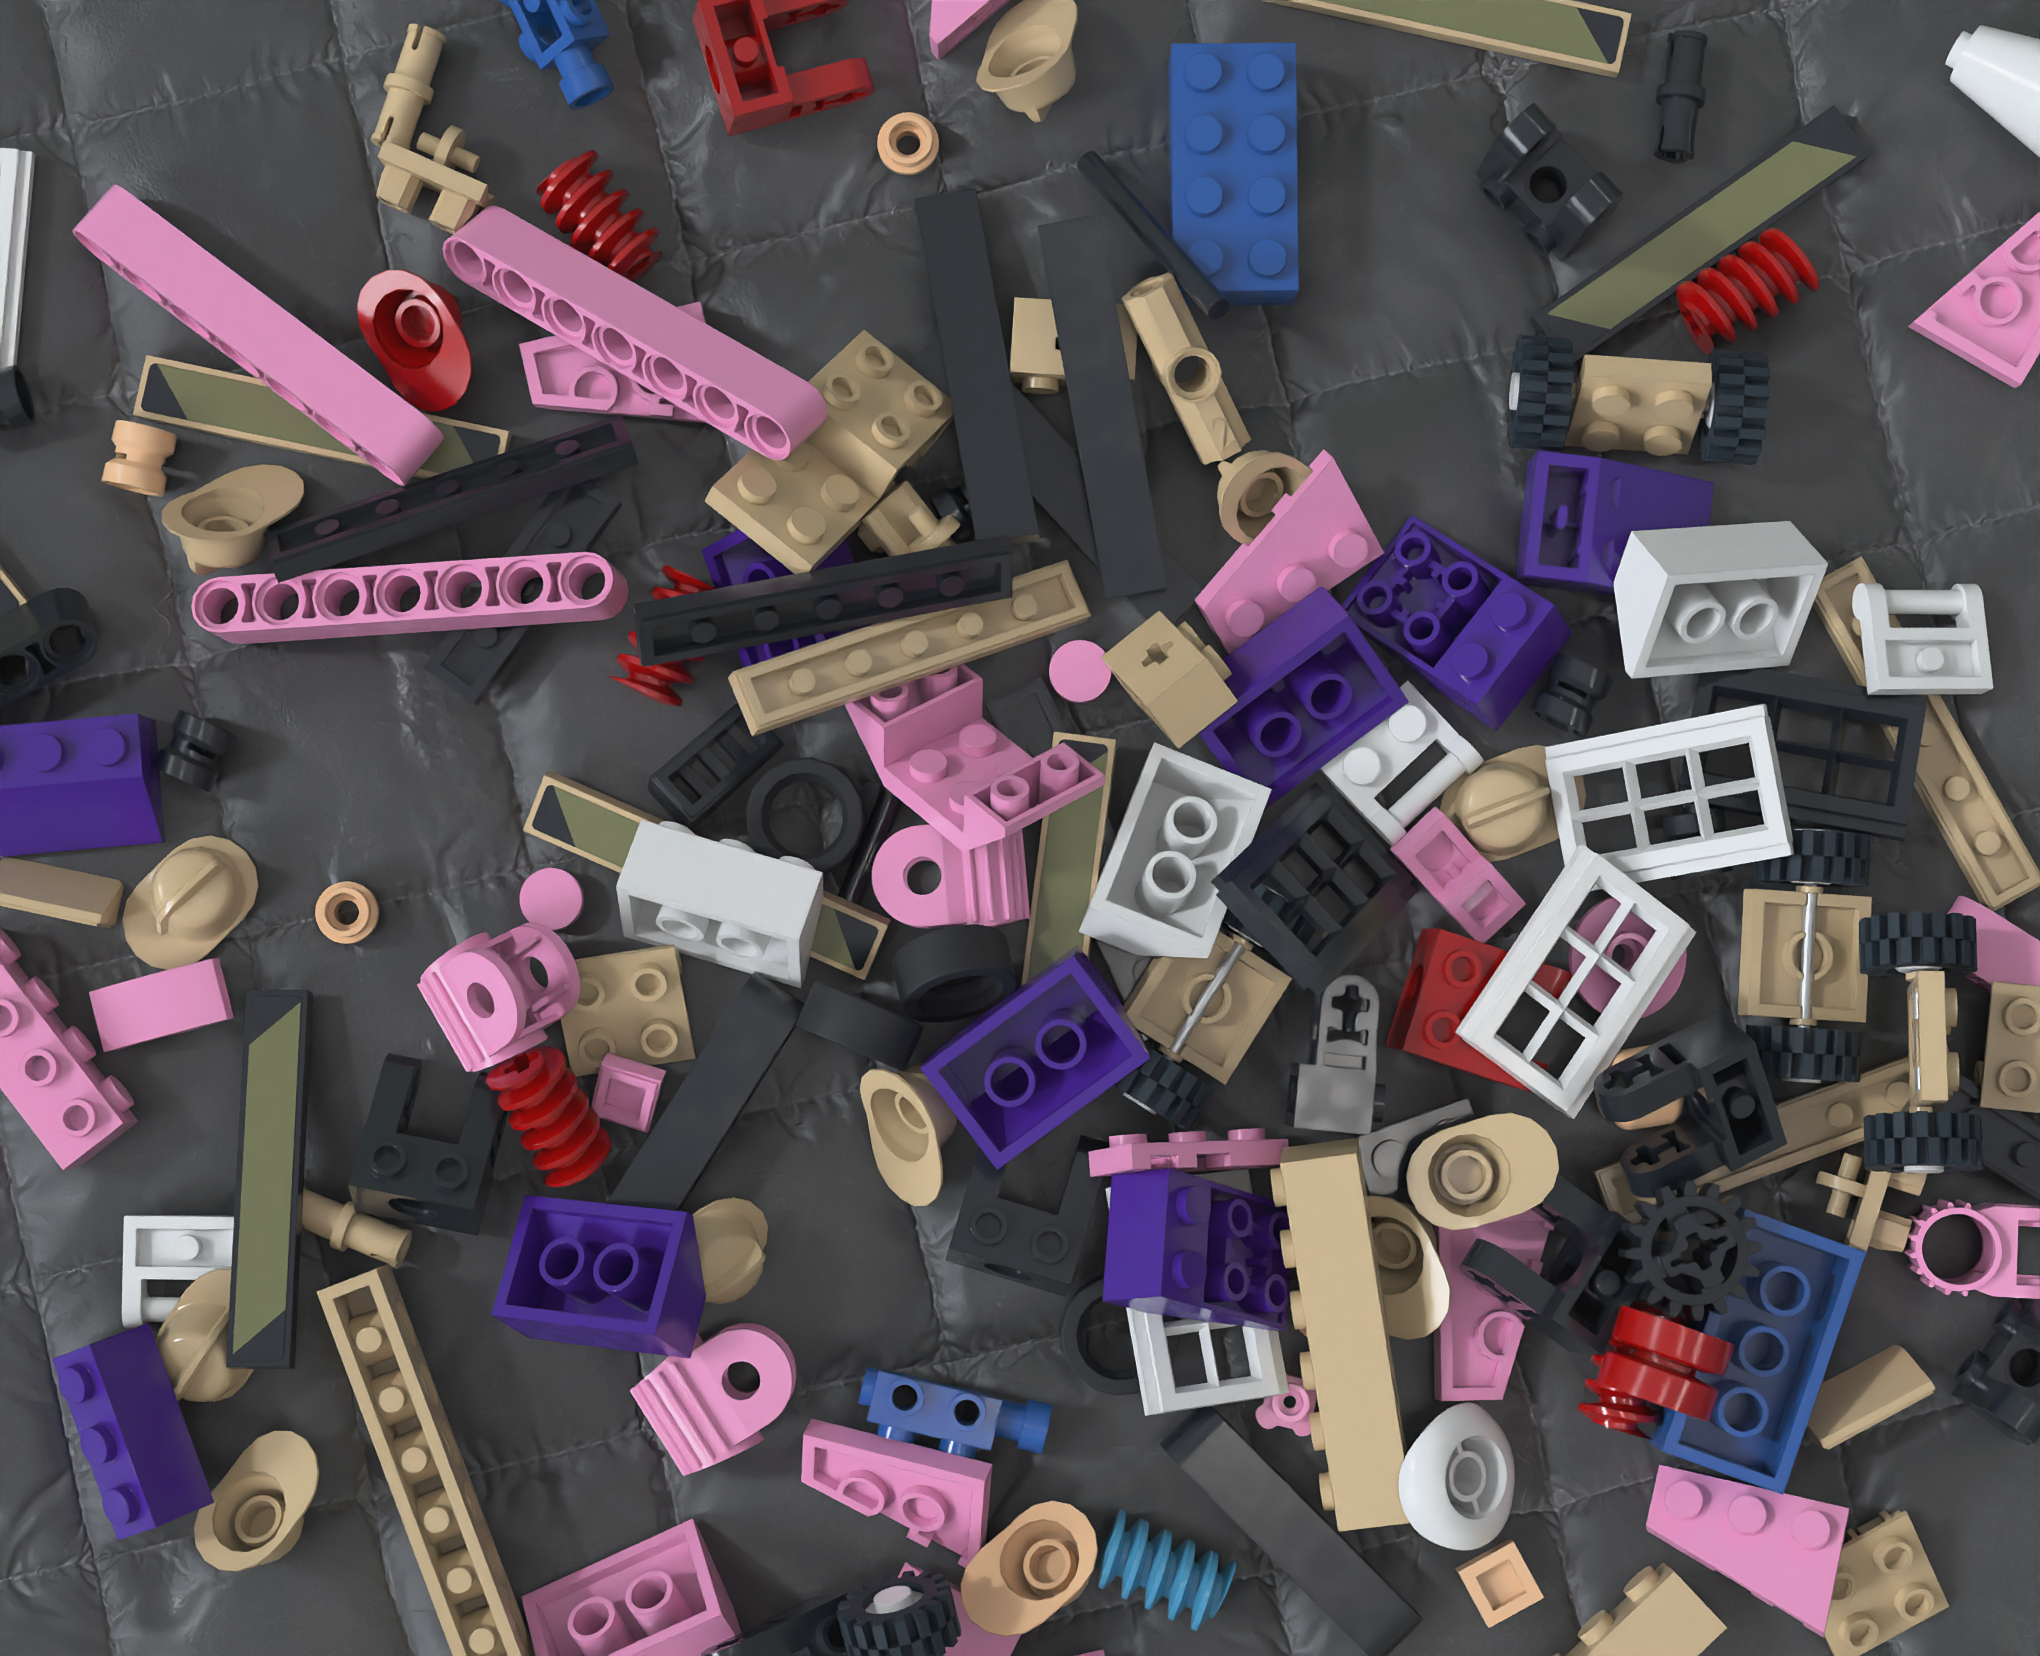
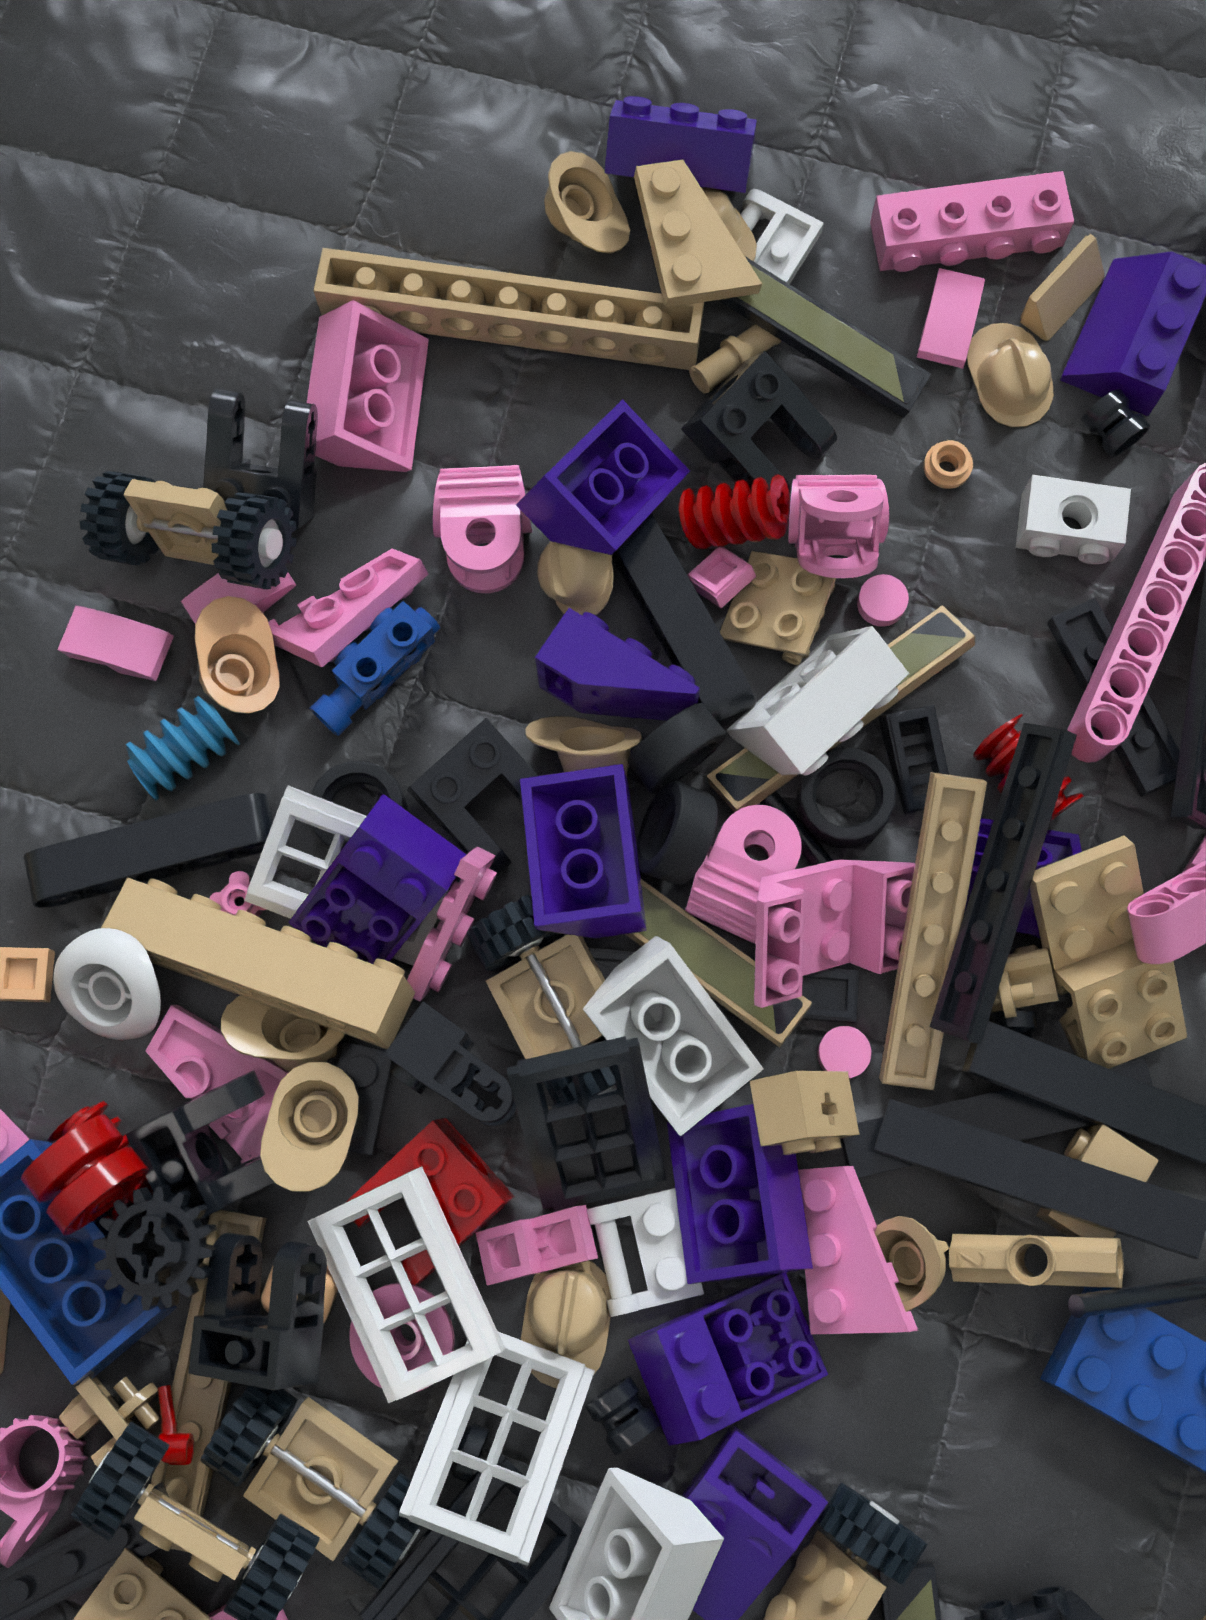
camera: 120 degrees right, 10 degrees down
(254, 1350) = (688, 239): none -> tan wing
(313, 715) = (1097, 508): none -> white brick
(824, 1158) = (609, 676): none -> dark purple slope
(1853, 1116) = (181, 1444): none -> red hand

